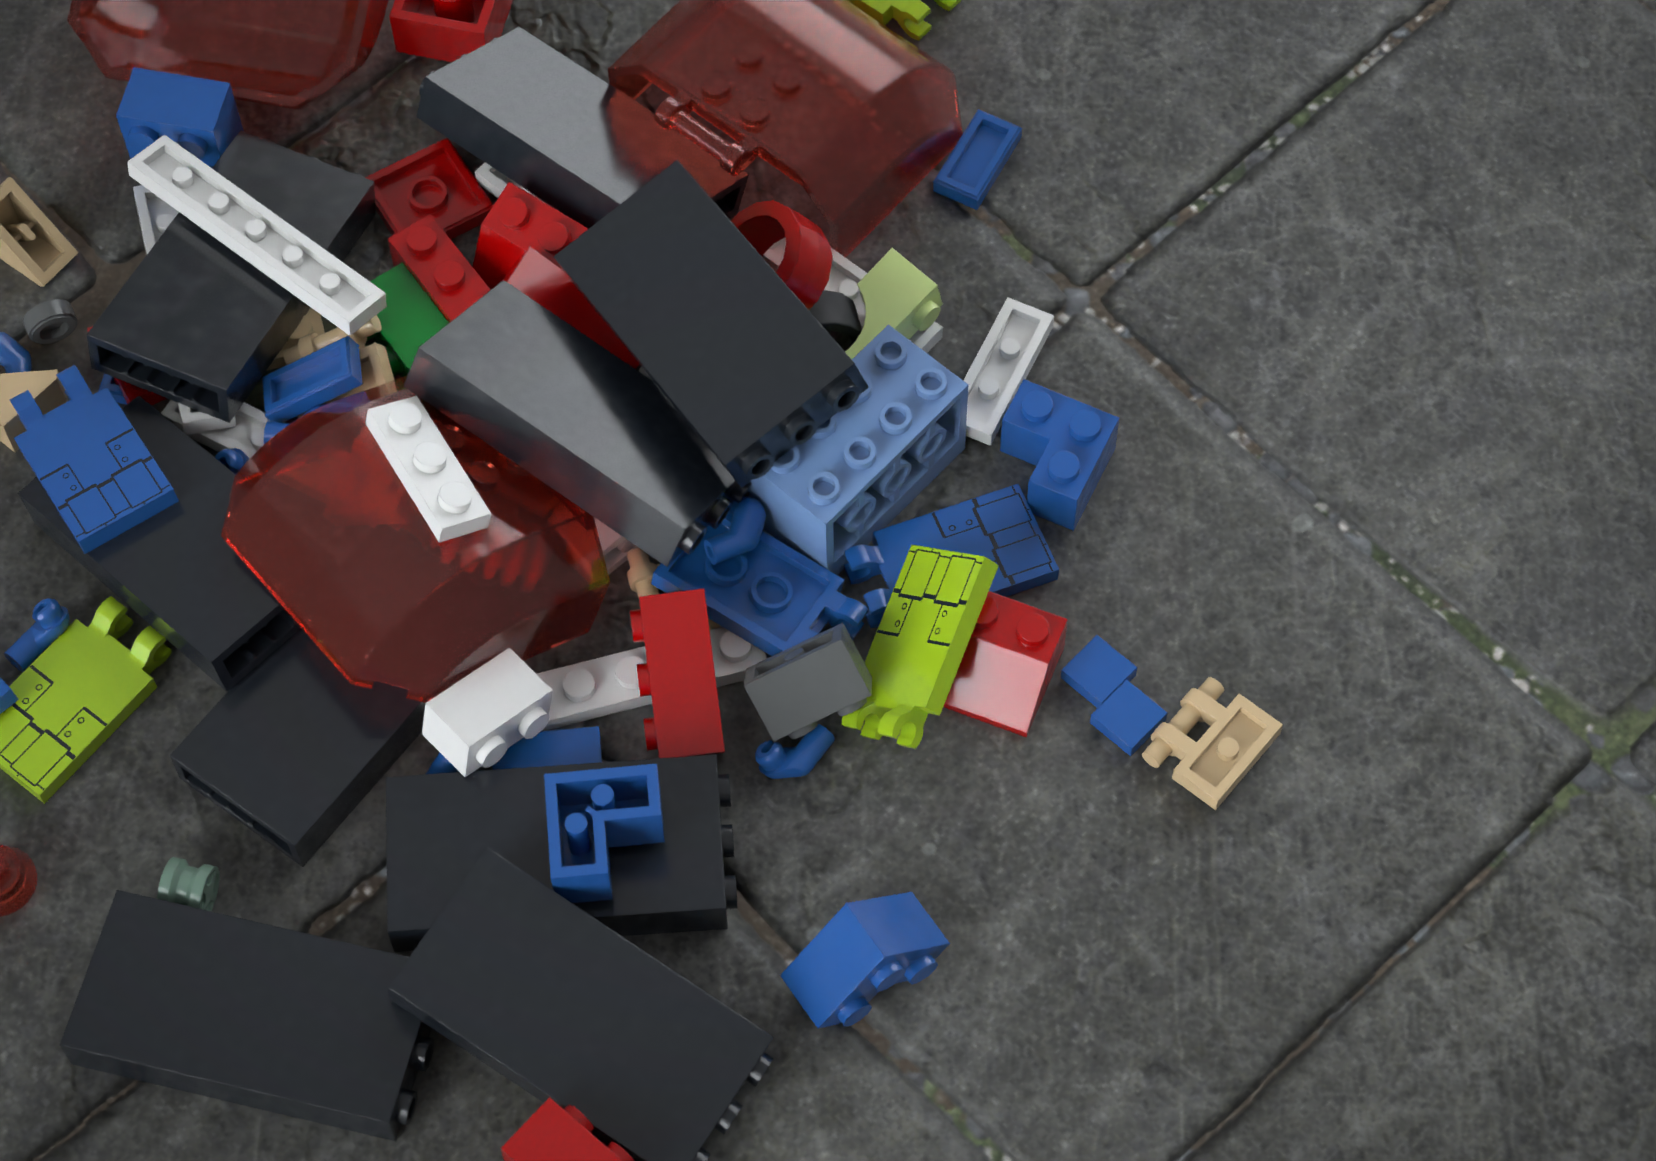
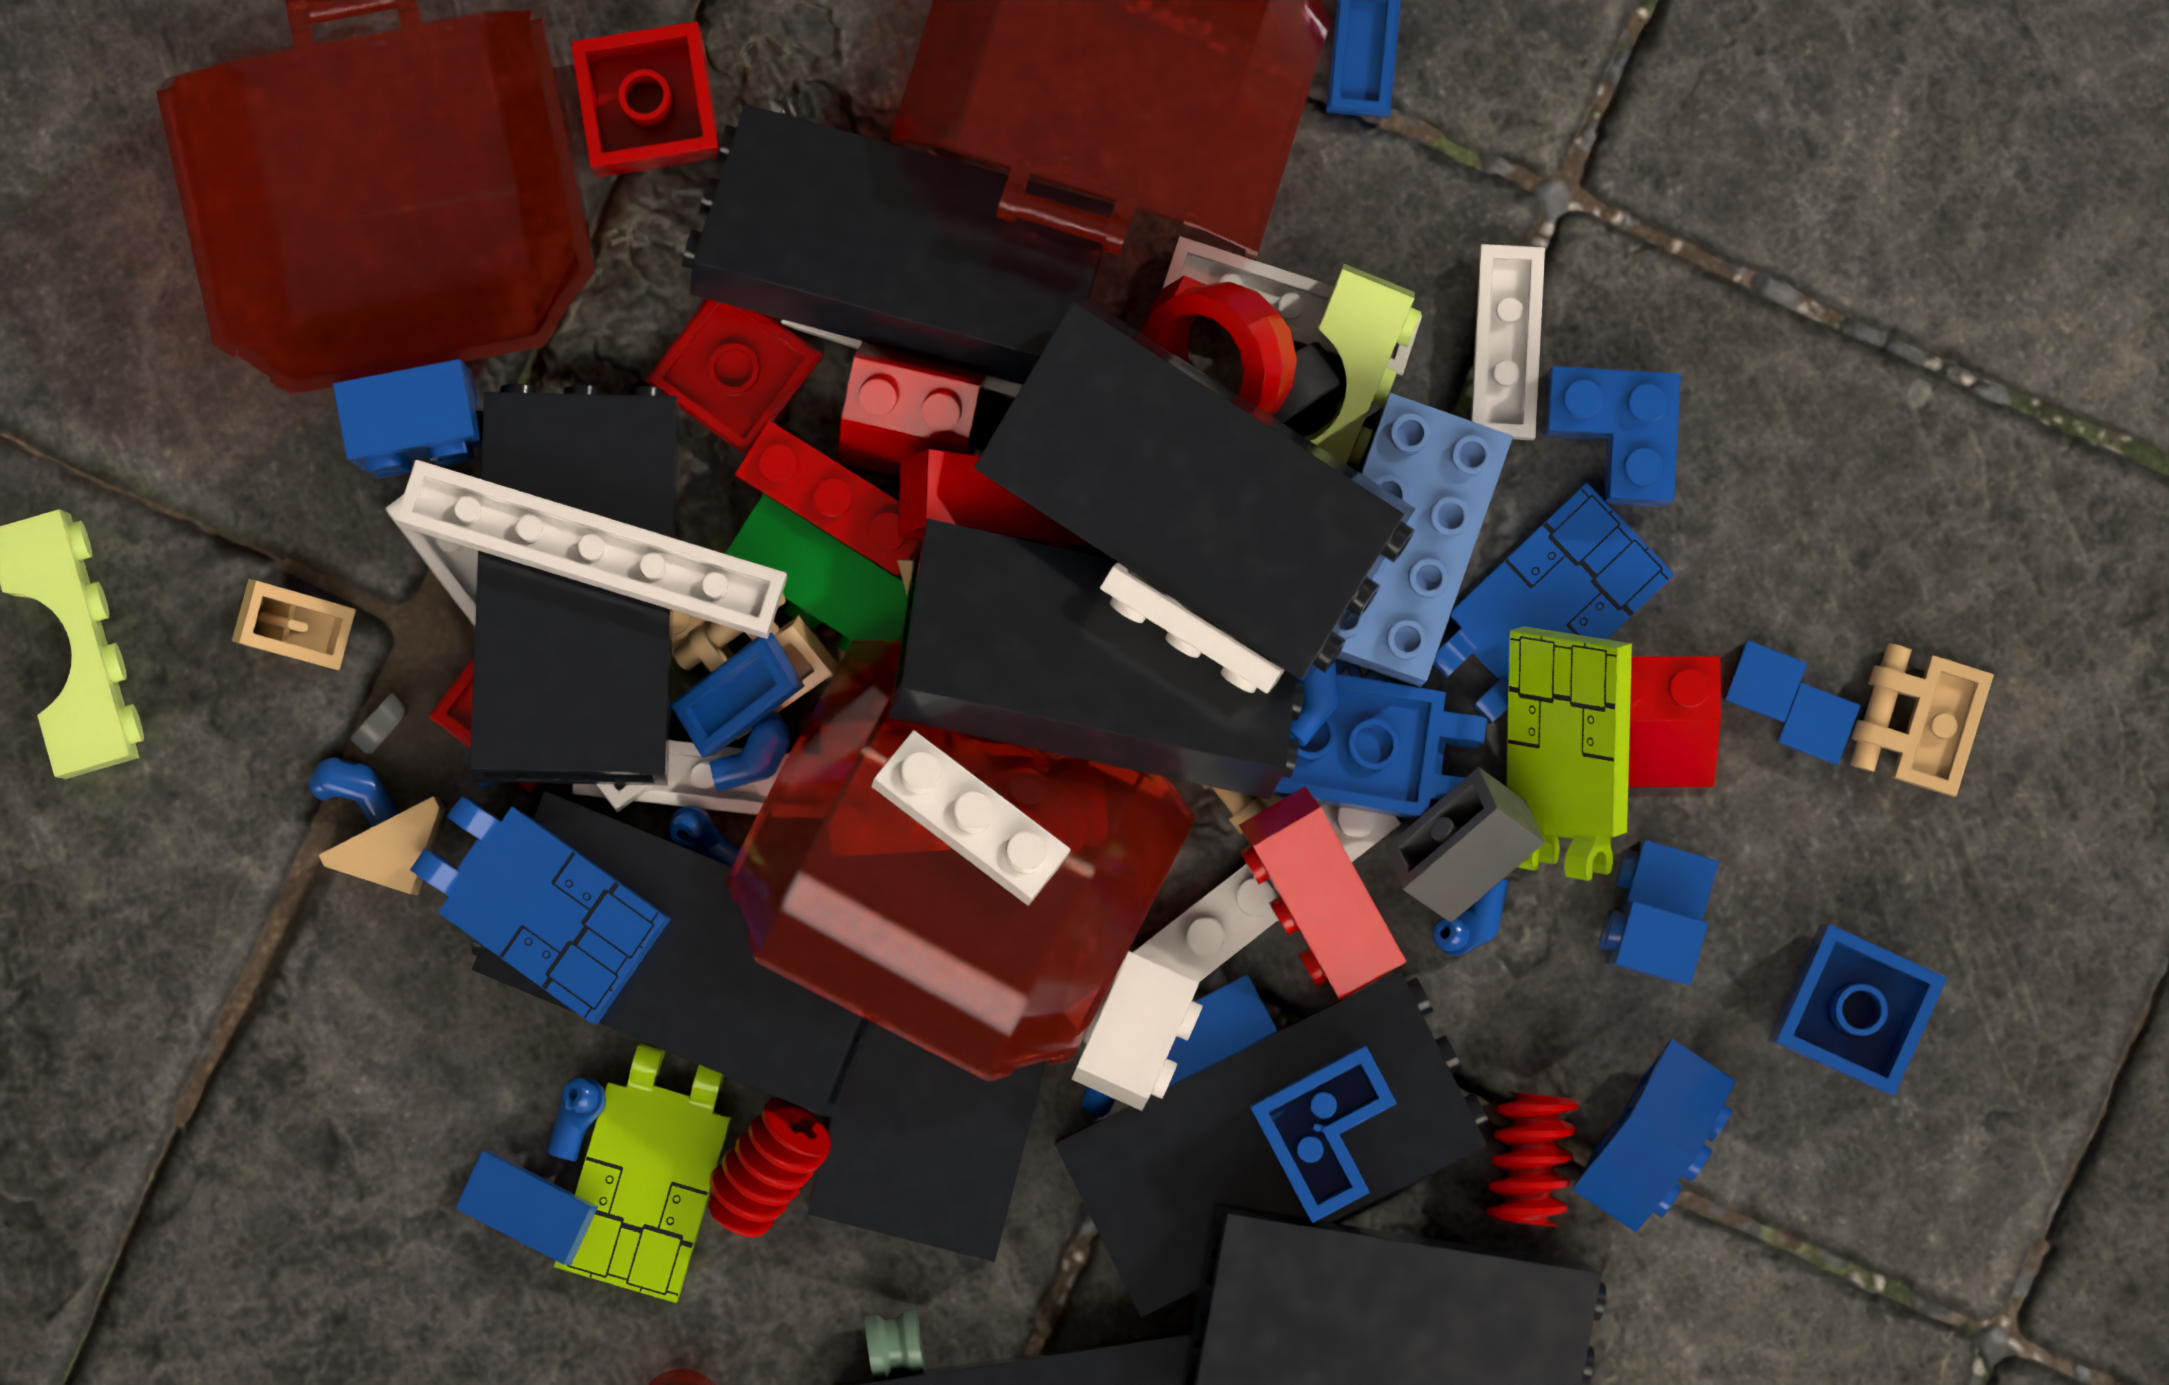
camera: 20 degrees left, 25 degrees up
(157, 711) = (767, 1168): none -> red piece
(662, 413) = (1189, 631): none -> white plate
(753, 942) = (1532, 1159): none -> red piece
(939, 797) = (1660, 912): none -> blue brick
(1071, 924) = (1857, 1009): none -> blue brick

